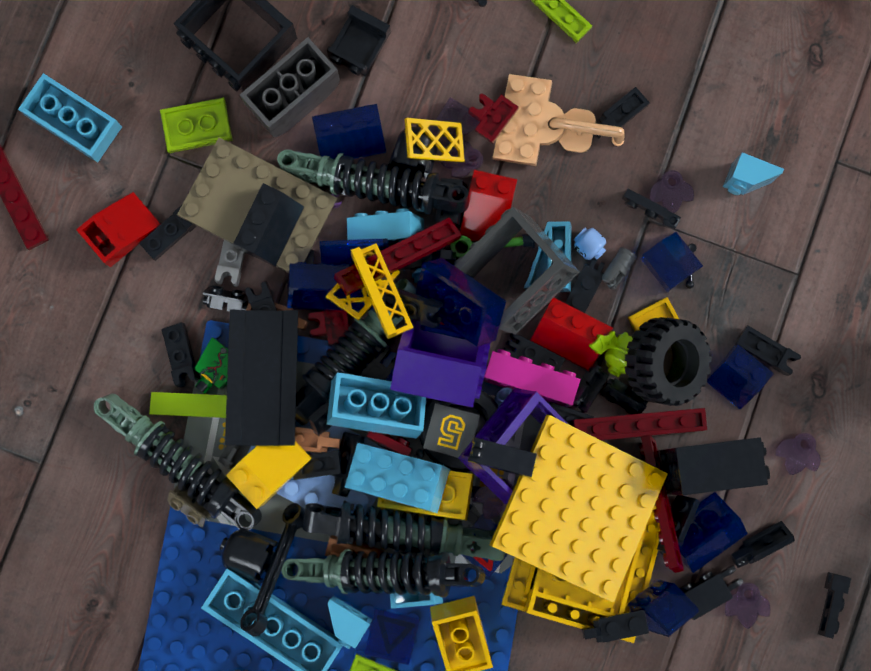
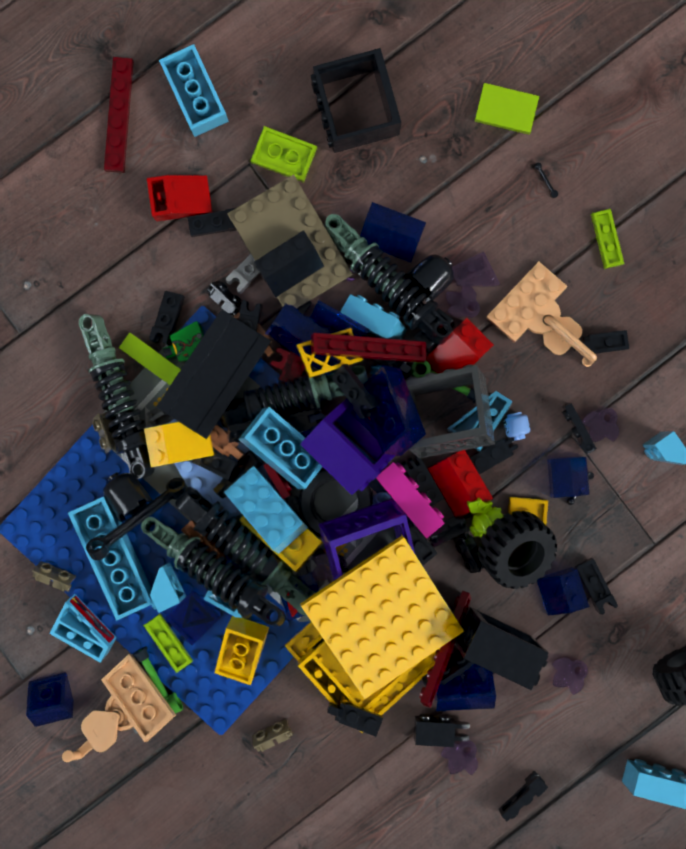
camera: 35 degrees right, 5 degrees up
(291, 88) = (370, 171): flat silver brick -> none
(359, 41) = (443, 166): black panel -> none
(373, 290) = (332, 366): yellow fence -> none
(411, 139) = (434, 266): yellow window -> none
(450, 430) = (326, 500): dark grey tile -> none
(493, 116) = (506, 286): dark red plate -> none
(502, 457) = (349, 548): black hinge -> none
(618, 267) = (526, 456): dark grey hinge -> none
(643, 424) = (468, 581): dark red plate -> none
(664, 607) = (400, 723): clear blue slope -> none
(763, 544) = (500, 722): black hinge -> none

